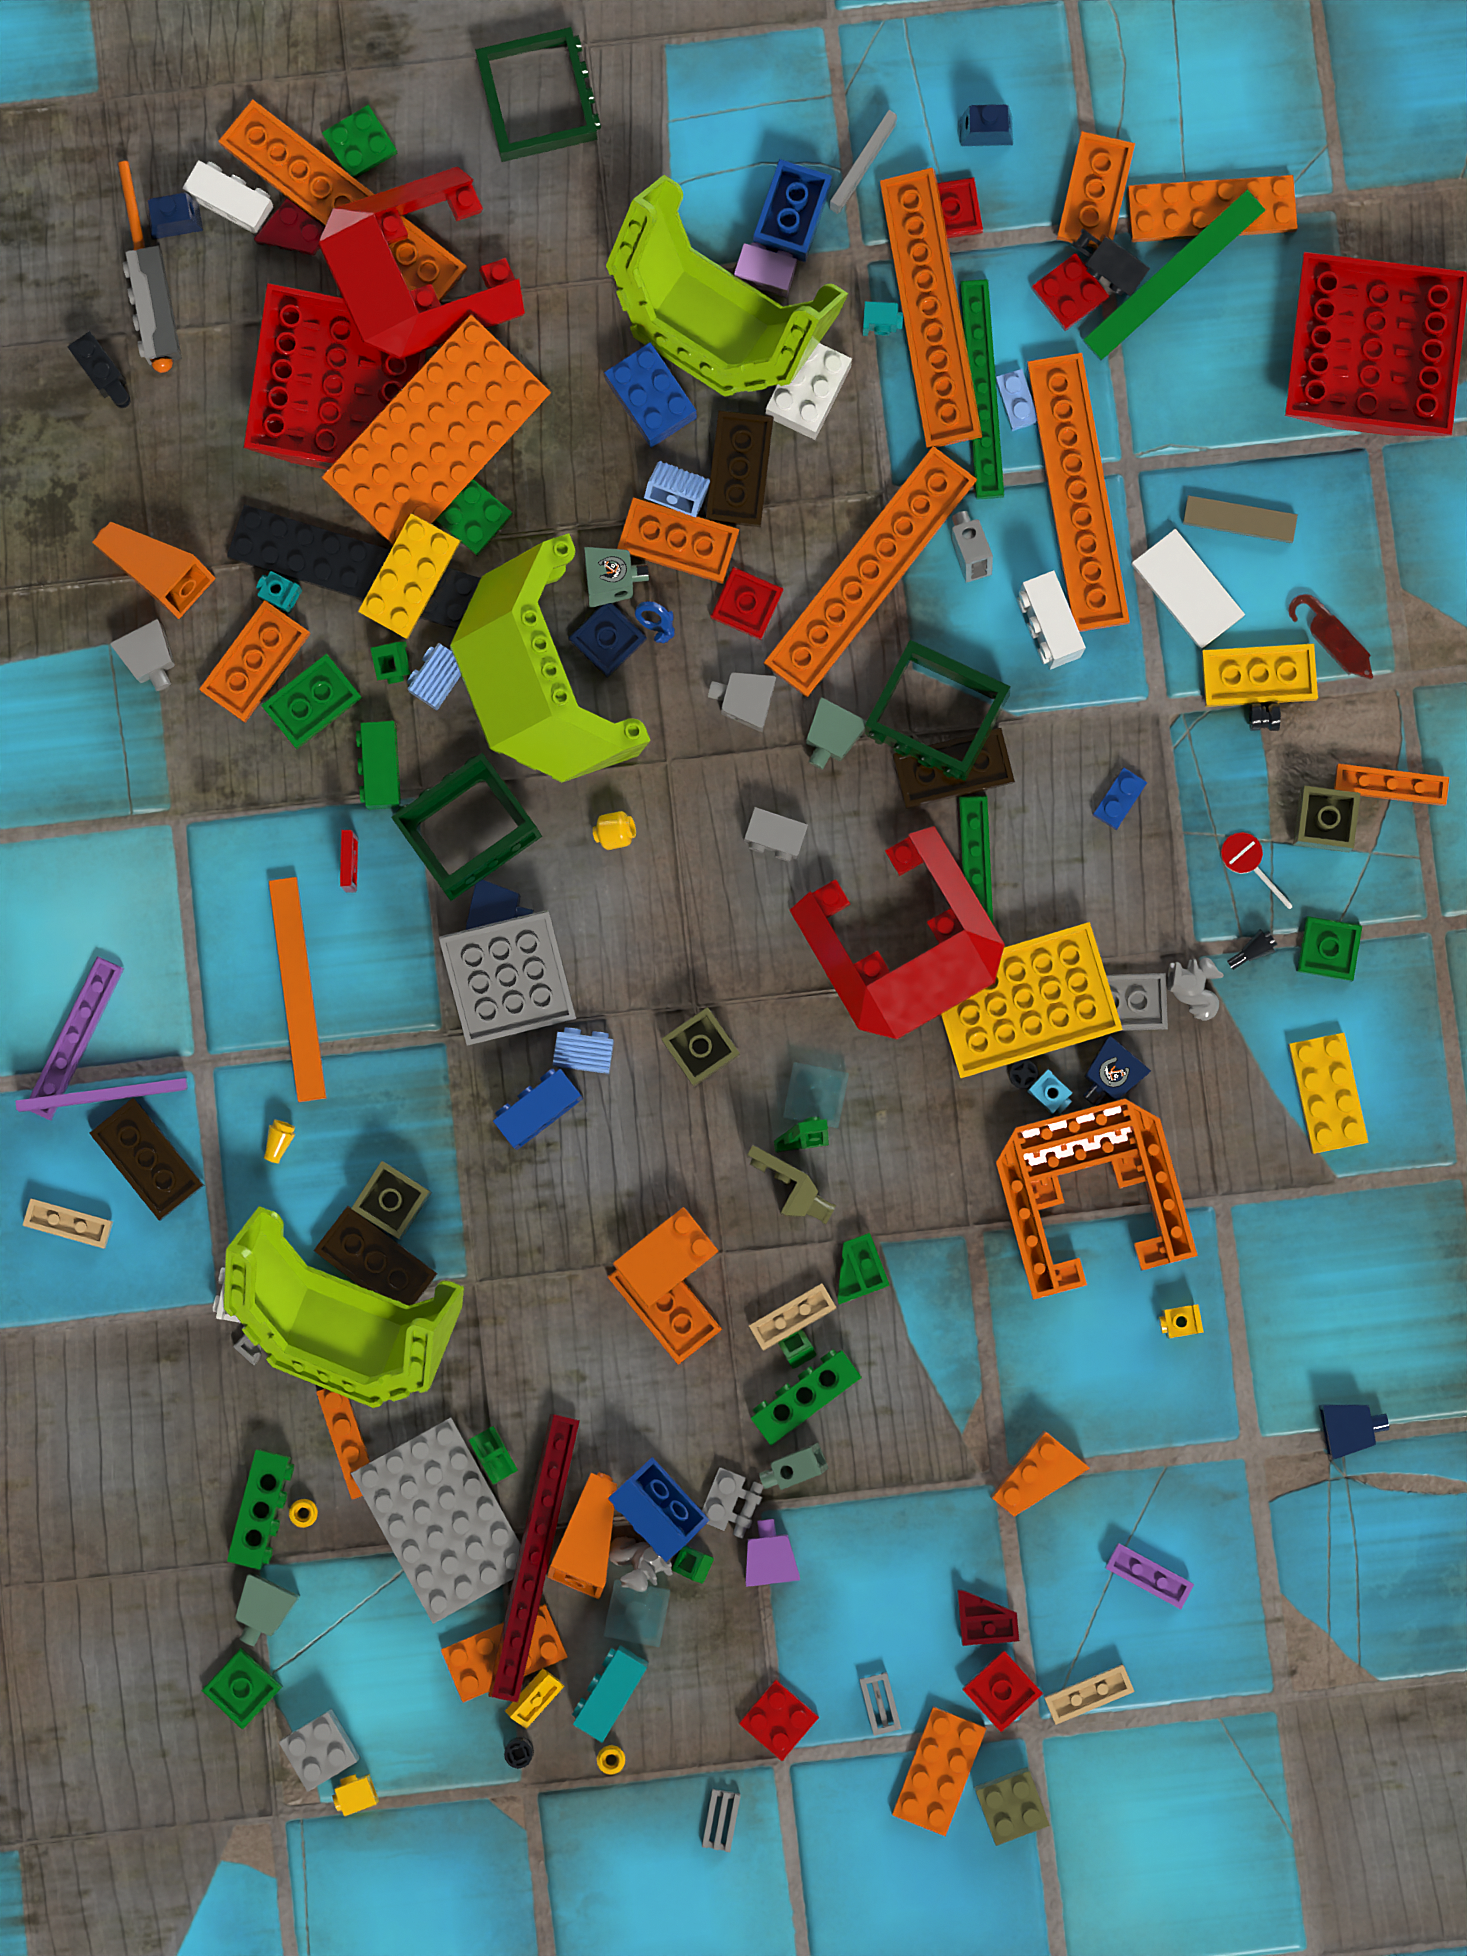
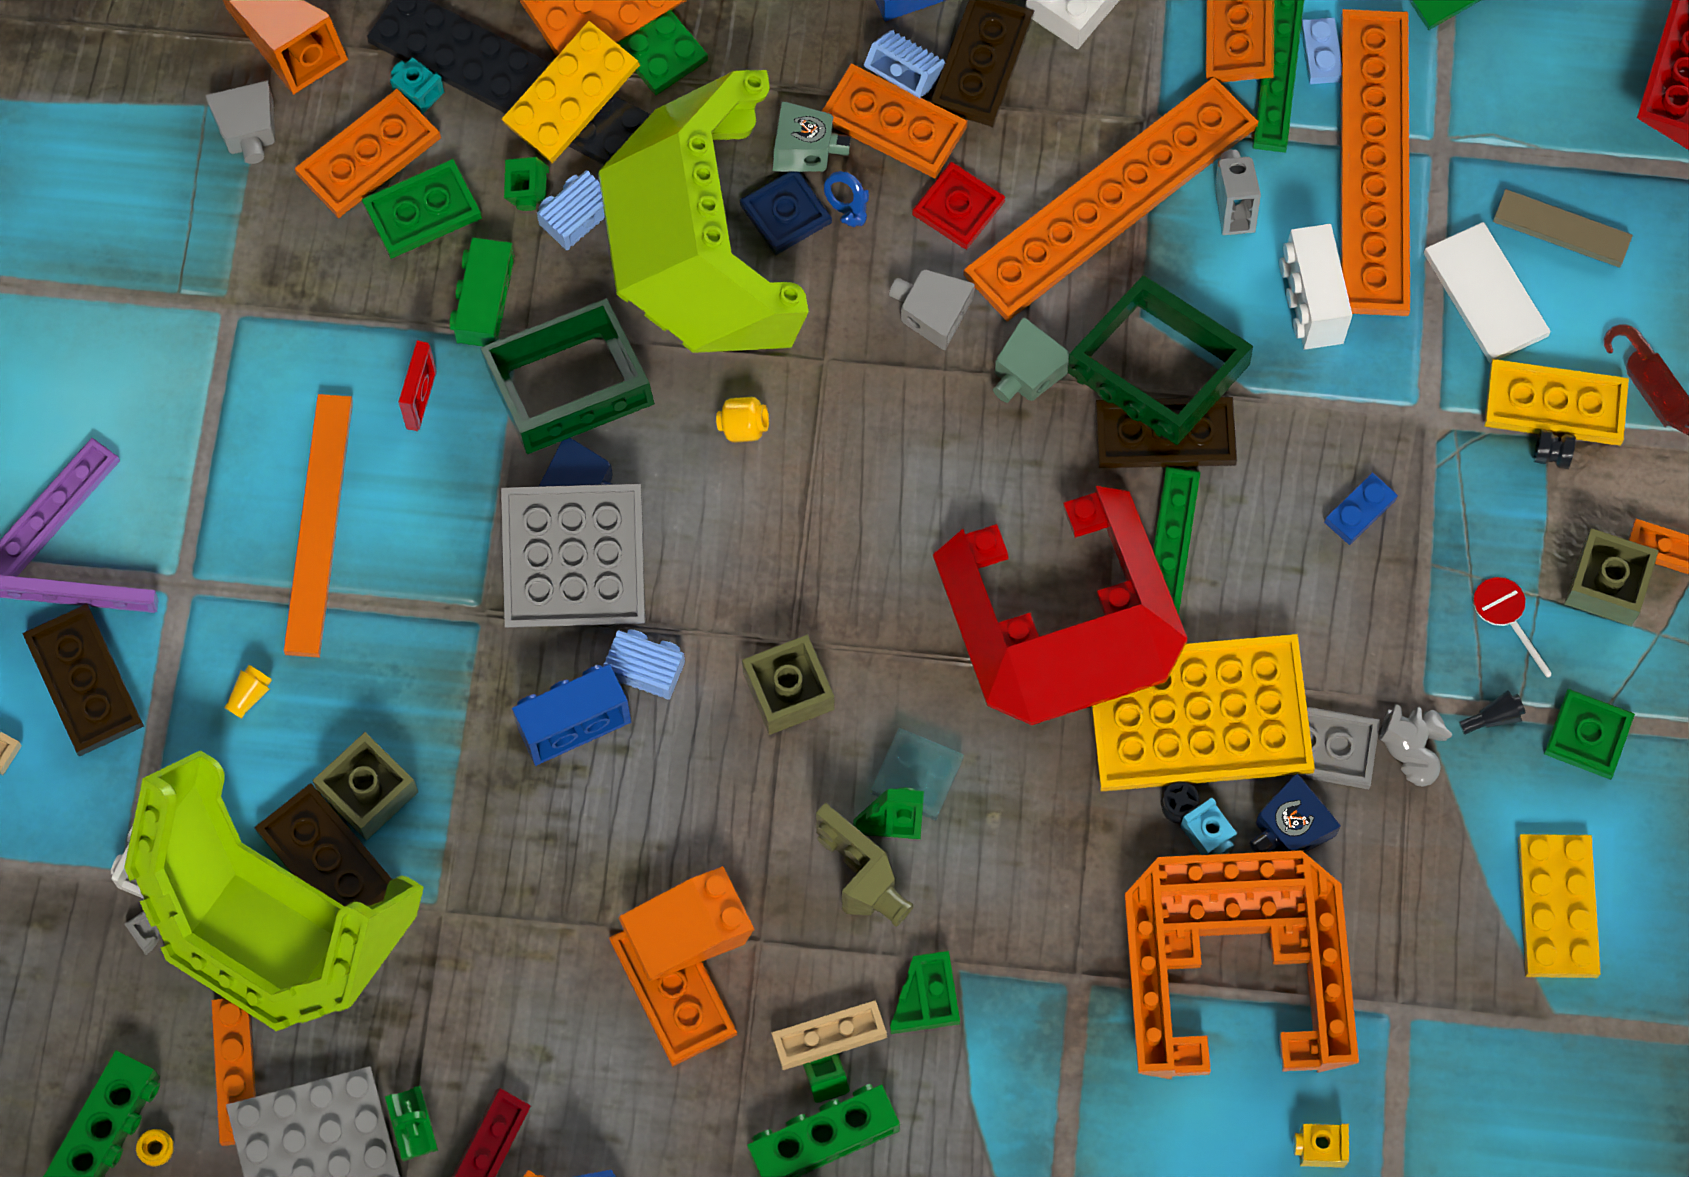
camera: 10 degrees right, 15 degrees down
(775, 834) = (935, 462): light grey brick -> none

